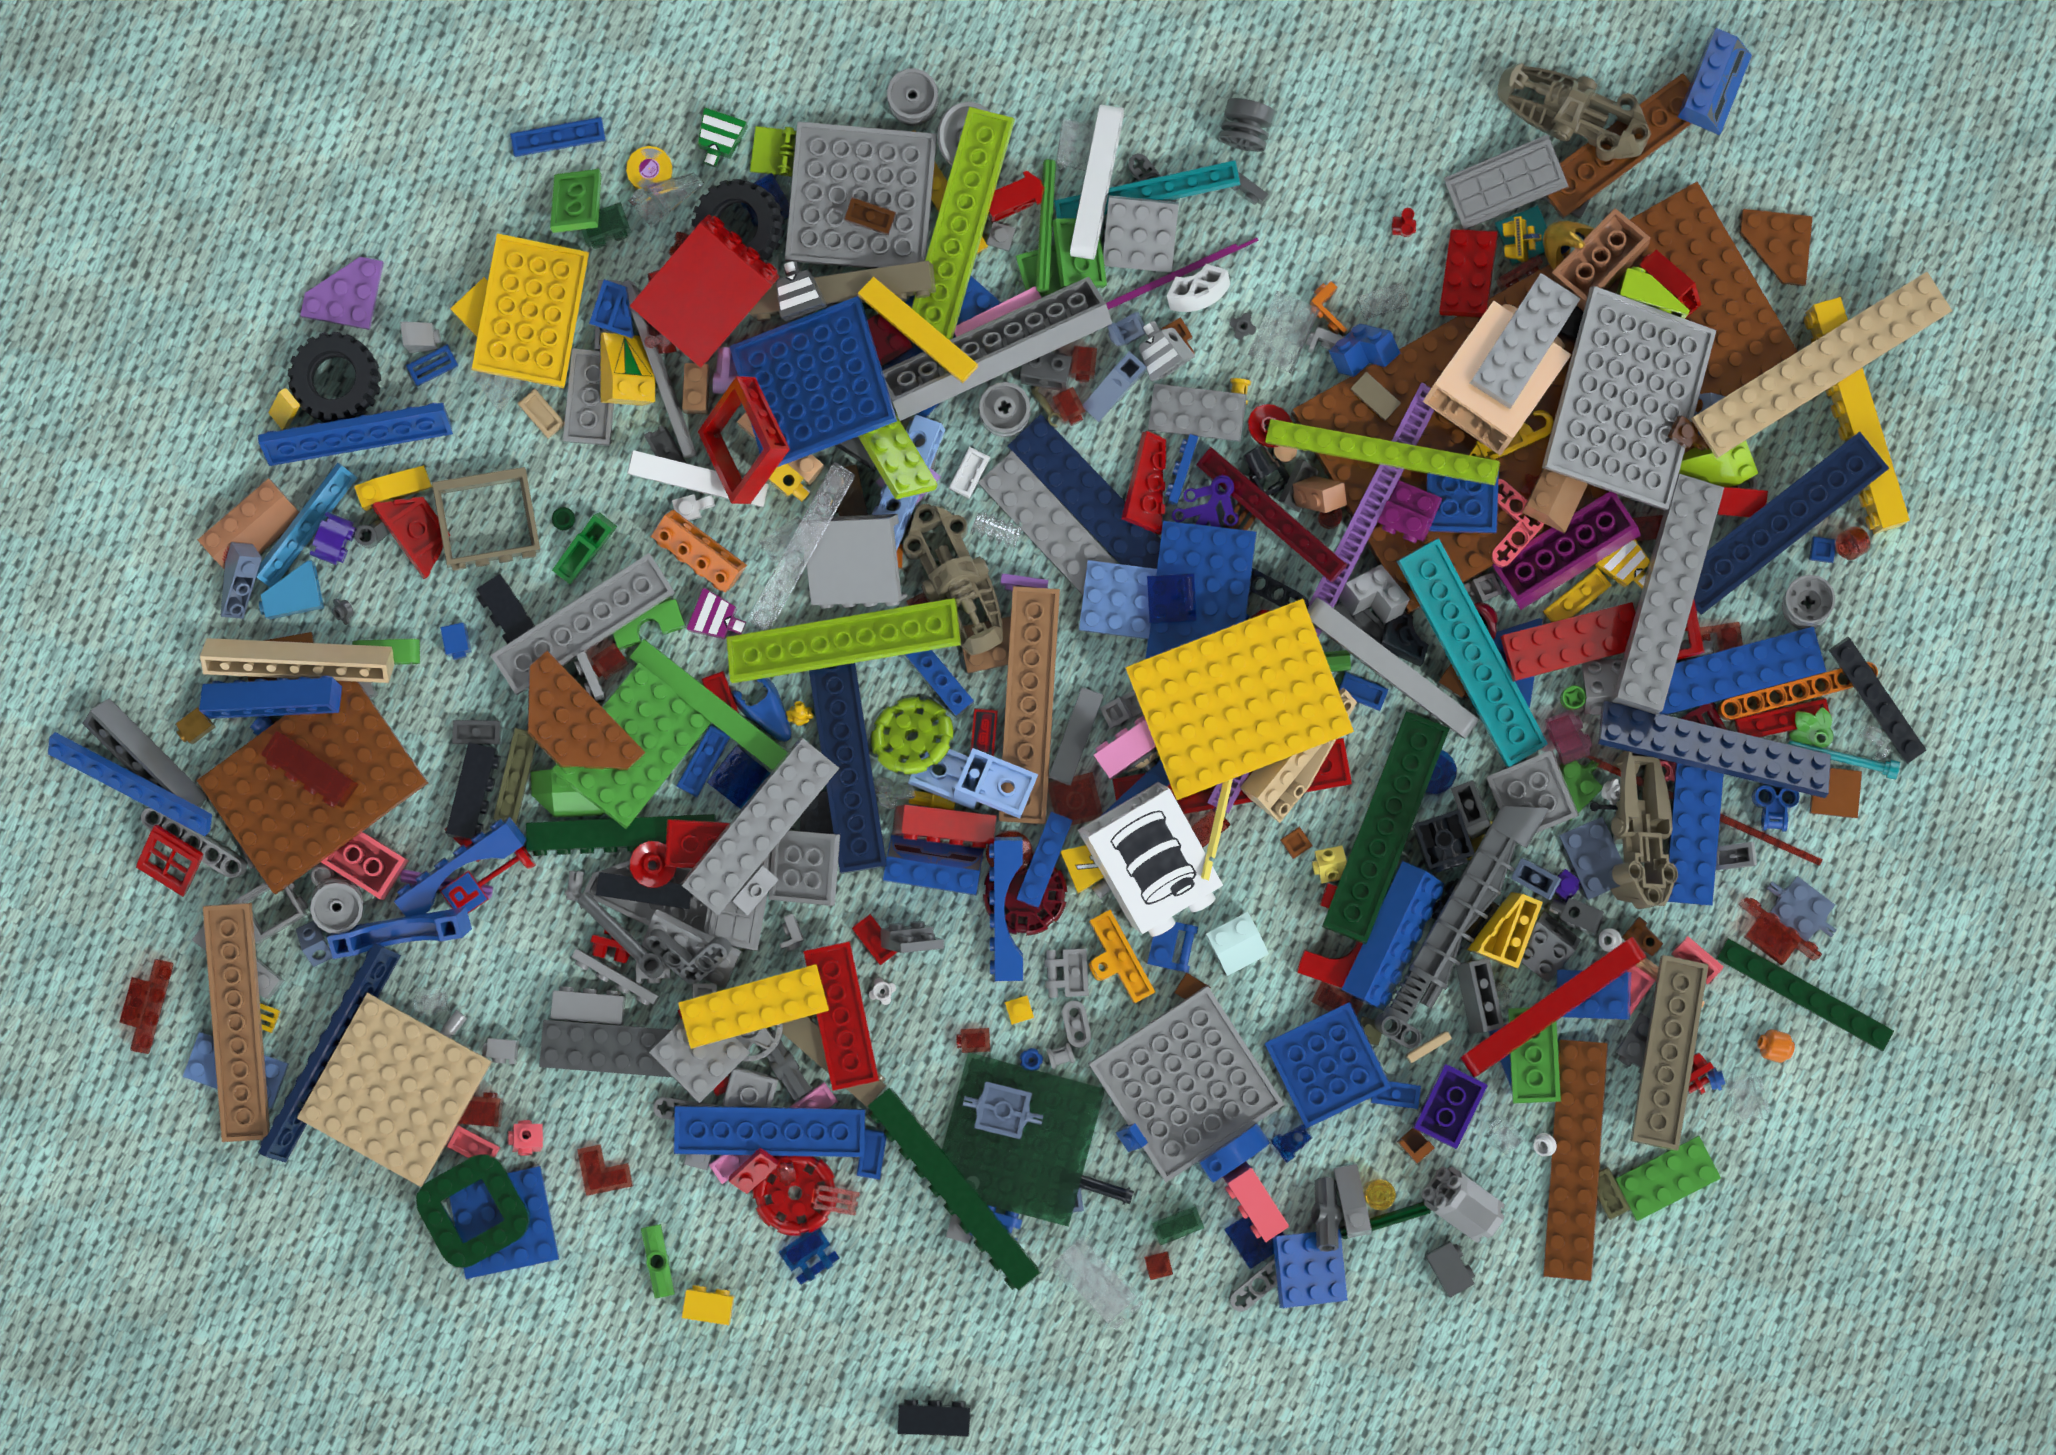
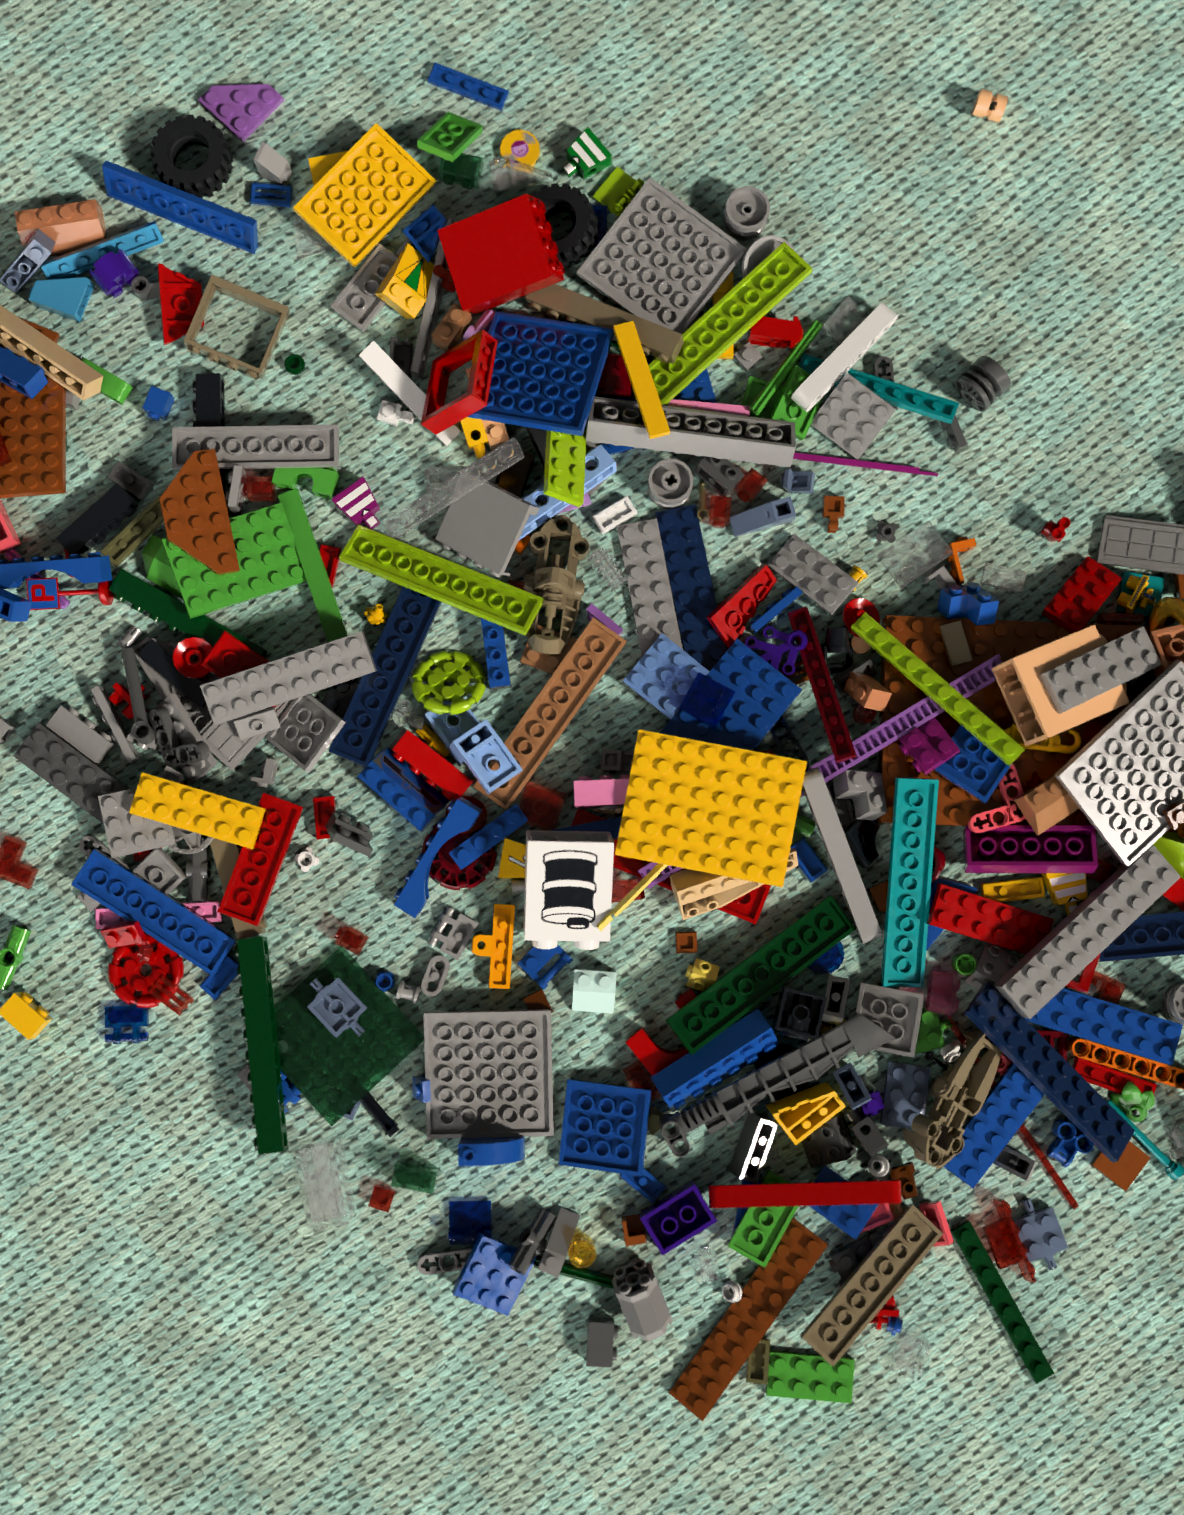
camera: 25 degrees right, 0 degrees up
(284, 409) = (141, 156): yellow tile -> none
(342, 610) = (90, 331): dark grey plate -> none
(392, 487) = (183, 262): yellow slope -> none
(541, 413) = (327, 278): tan tile -> none
(584, 547) = (296, 394): green slope -> none
(698, 551) = (377, 448): orange brick -> none
(703, 761) = (283, 606): blue tile -> none
(738, 777) = (300, 632): clear blue hinge -> none
(768, 712) = (354, 599): blue animal -> none
(798, 293) = (569, 300): dark grey torso -> none
(870, 216) = (659, 277): reddish brown plate -> none
(934, 1418) = (139, 1208): black brick -> none
(984, 730) = (505, 713): slope -> none
(1019, 1010) = (399, 937): yellow plate -> none
(1076, 736) = (570, 759): dark grey slope -> none
(1163, 351) = (815, 513): light grey torso -> none
(1199, 290) = (870, 484): white brick -> none
(1255, 1202) = (483, 1200): coral wedge -> none
(1288, 1145) = (537, 1167): clear blue plate -> none
(1428, 1046) = (690, 1161): tan tile -> none
(1483, 588) = (947, 839): light grey slope -> none
(1776, 1046) = (956, 1328): orange head -> none

